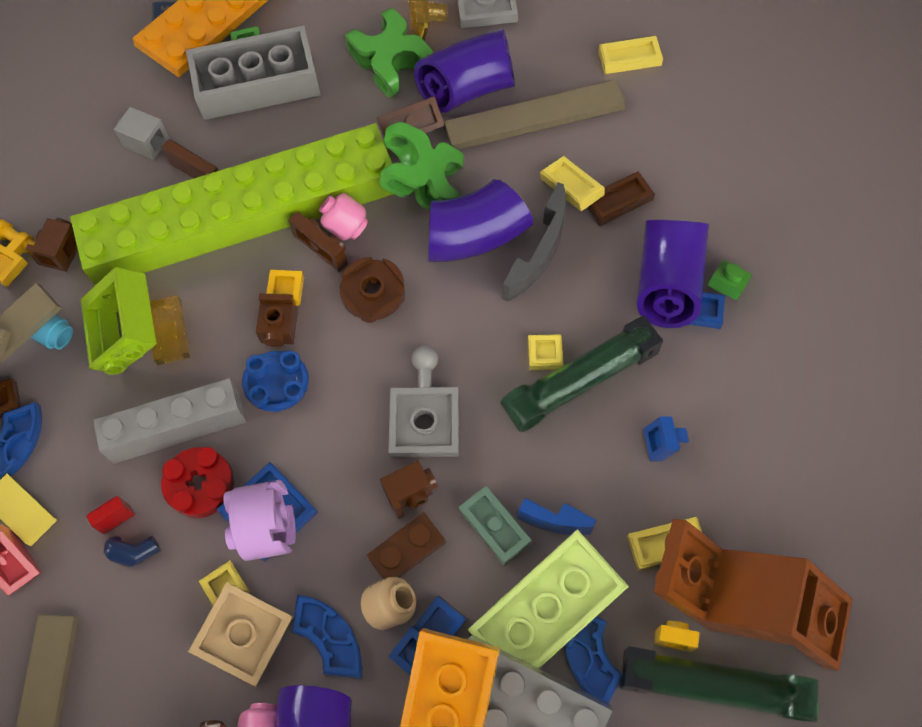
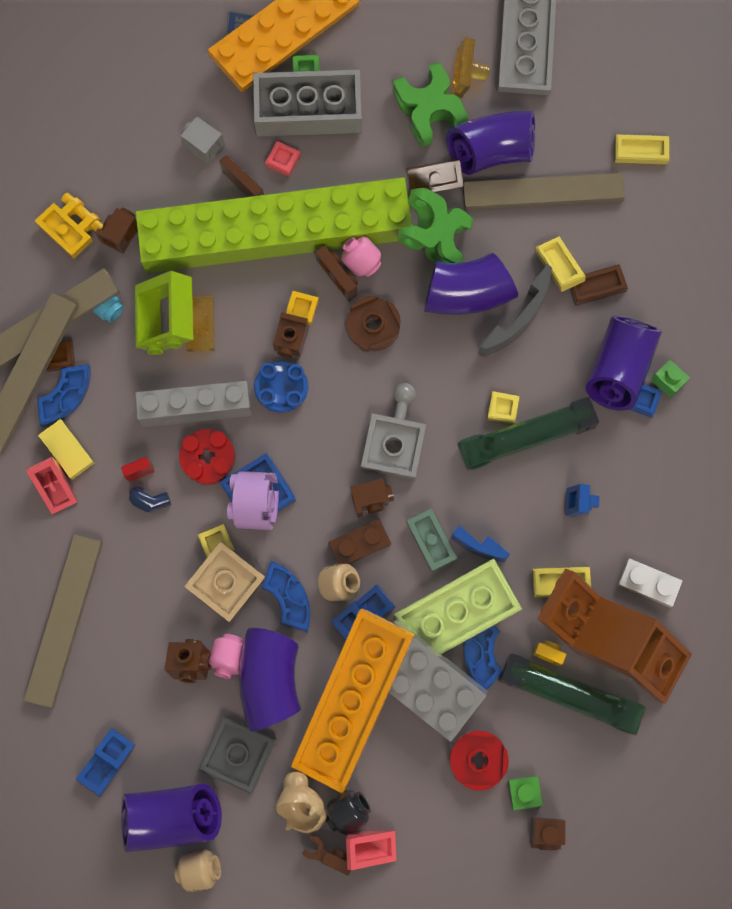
camera: 10 degrees right, 10 degrees up
(236, 137) = (282, 158): none -> coral tile
(775, 521) = (650, 583): none -> white plate

